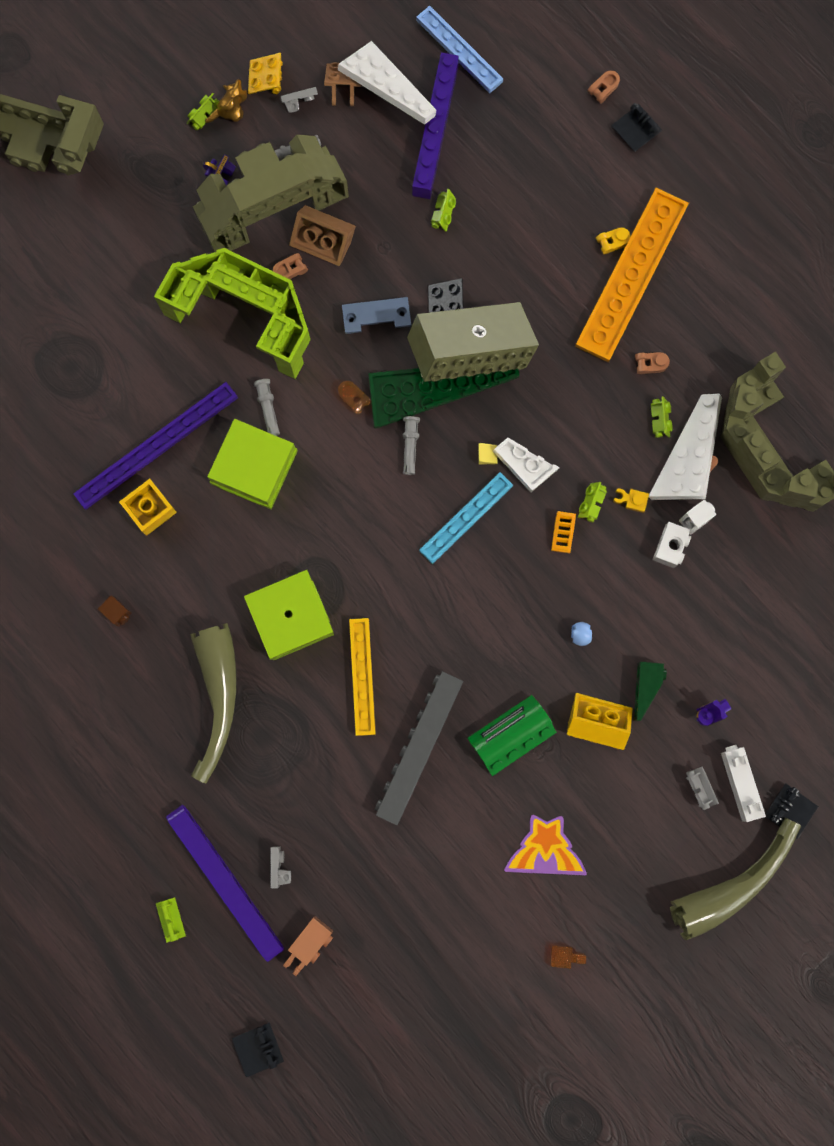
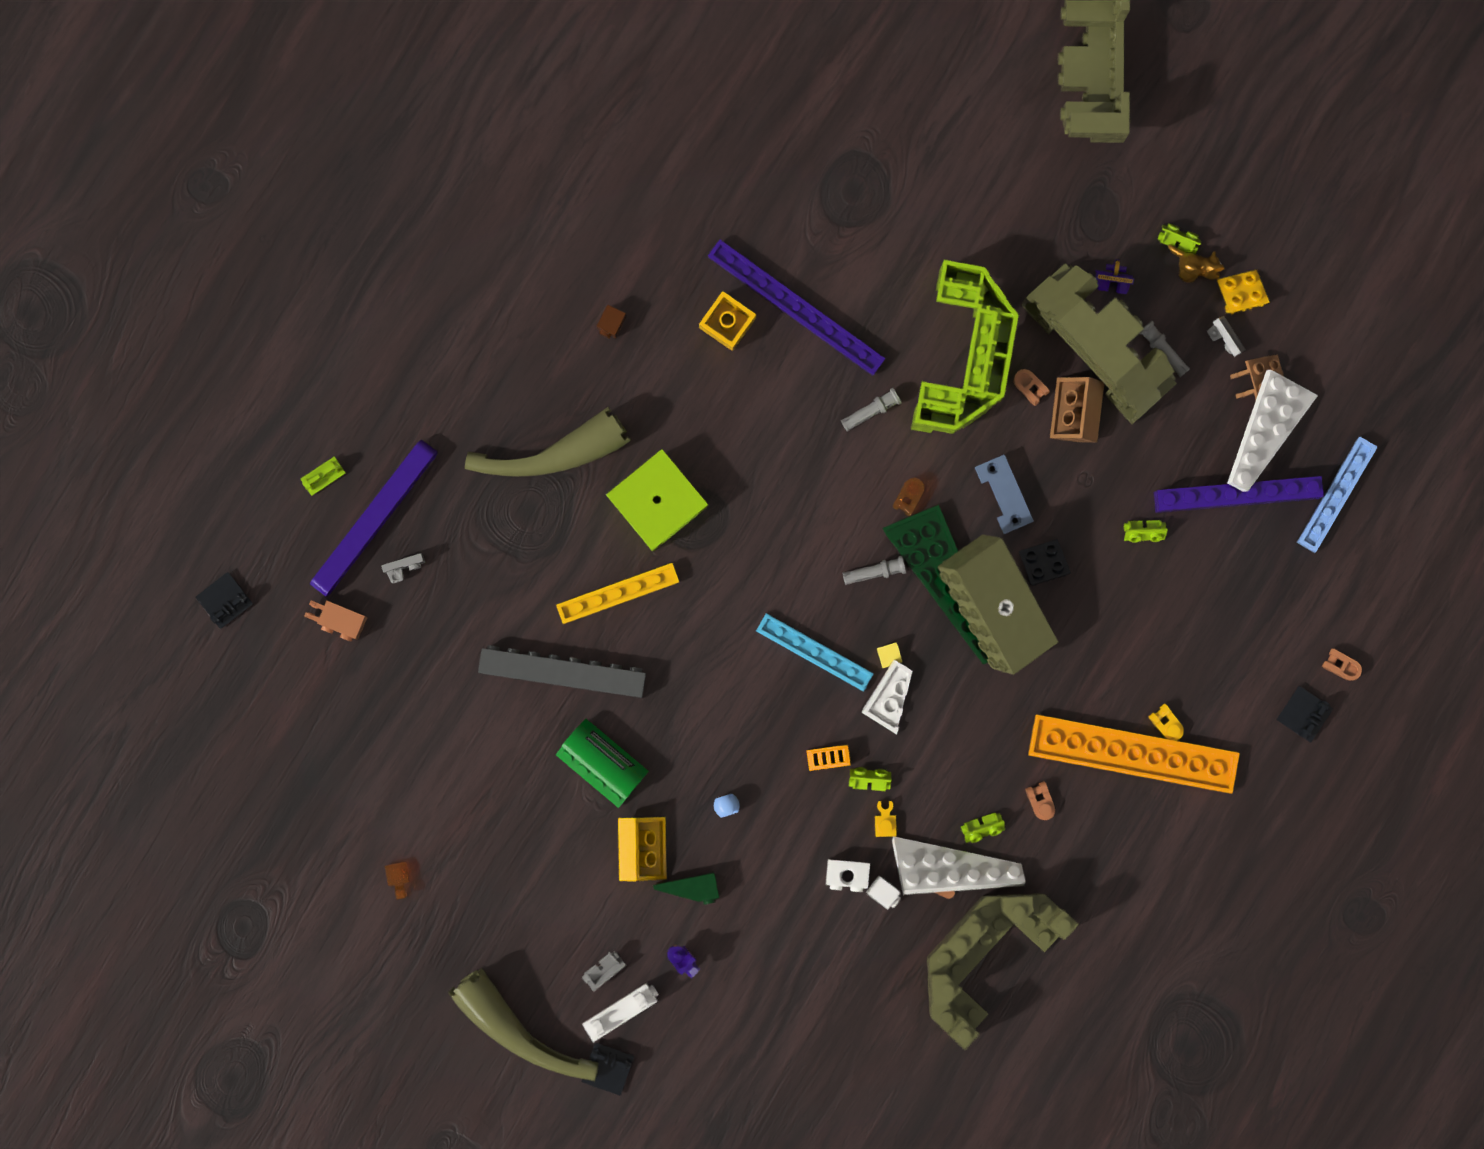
camera: 70 degrees right, 5 degrees up
(252, 464) = (804, 414): lime container -> none
(546, 850) = (497, 830): sticker -> none

